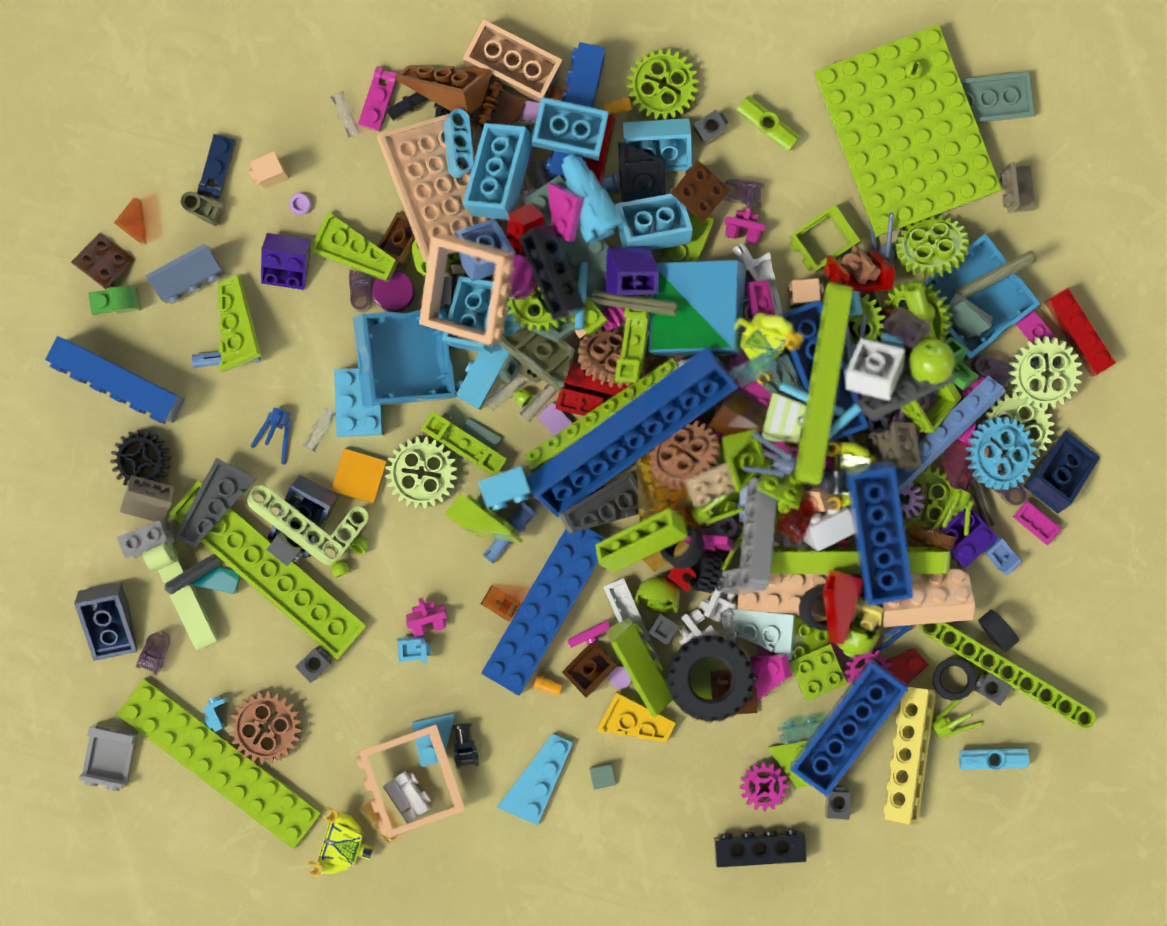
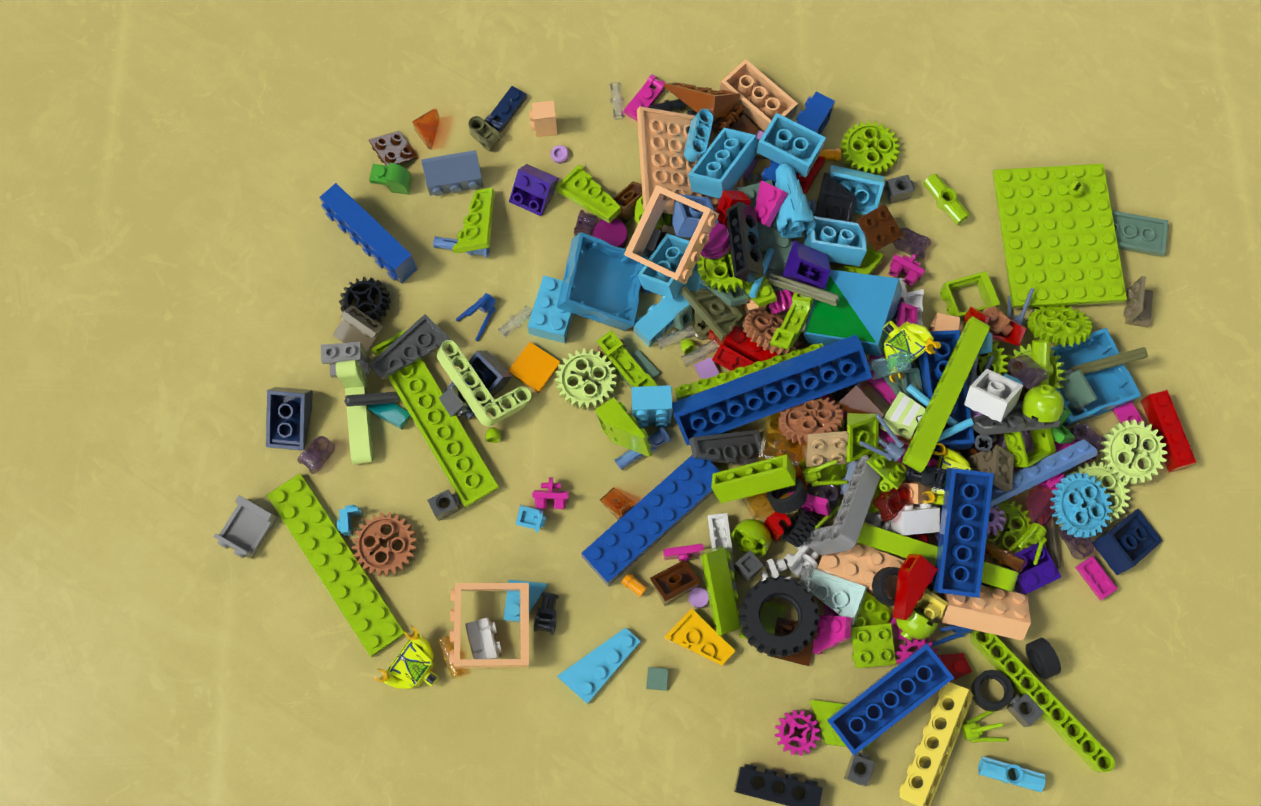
camera: 15 degrees right, 15 degrees down
(359, 545) = (515, 421): lime hinge -> none
(791, 730) = (835, 692): clear light blue hinge -> none
(1002, 556) = (1059, 596): medium blue bracket -> none

